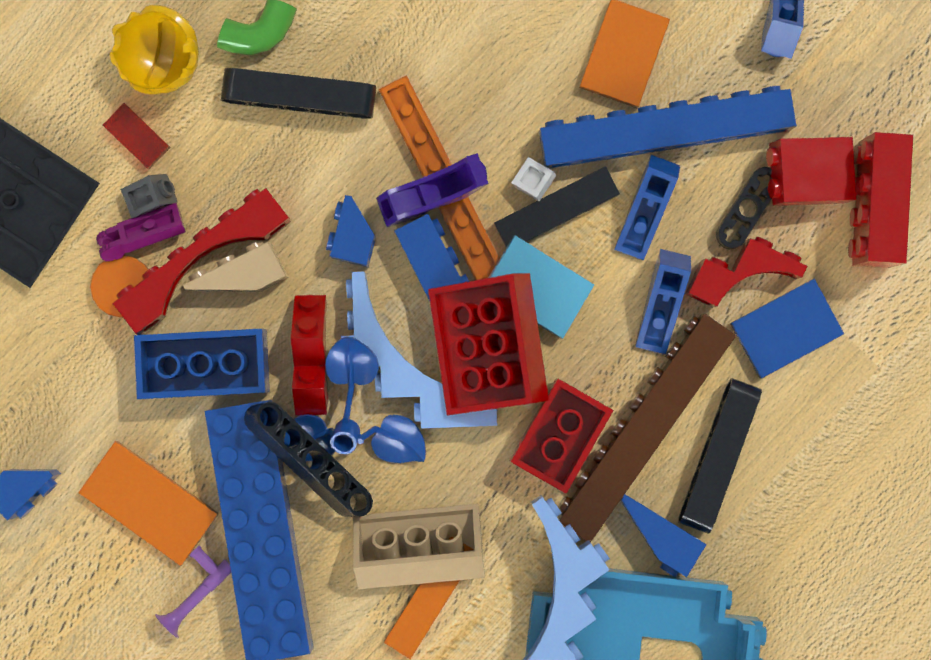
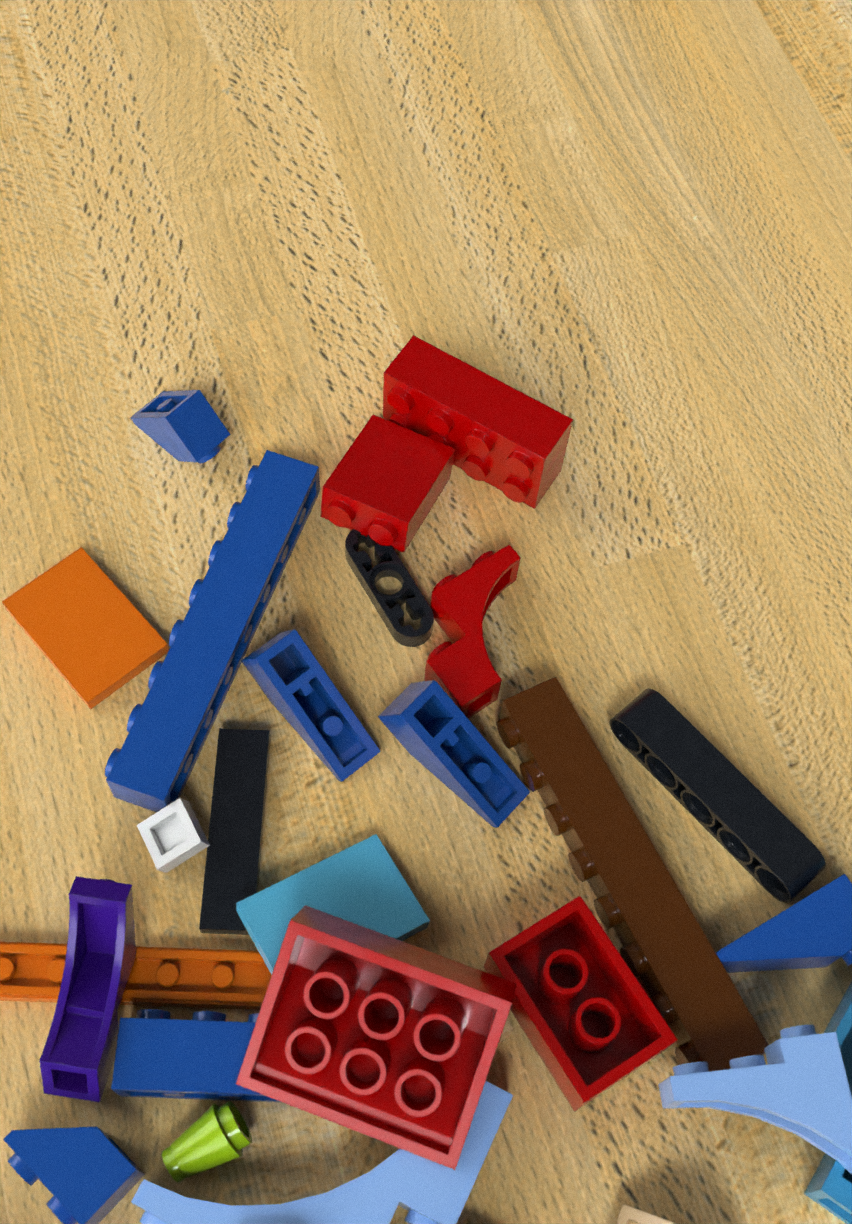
camera: 65 degrees left, 25 degrees down
(398, 290) = (208, 1142): none -> lime cone
(787, 328) = (577, 621): blue tile -> none

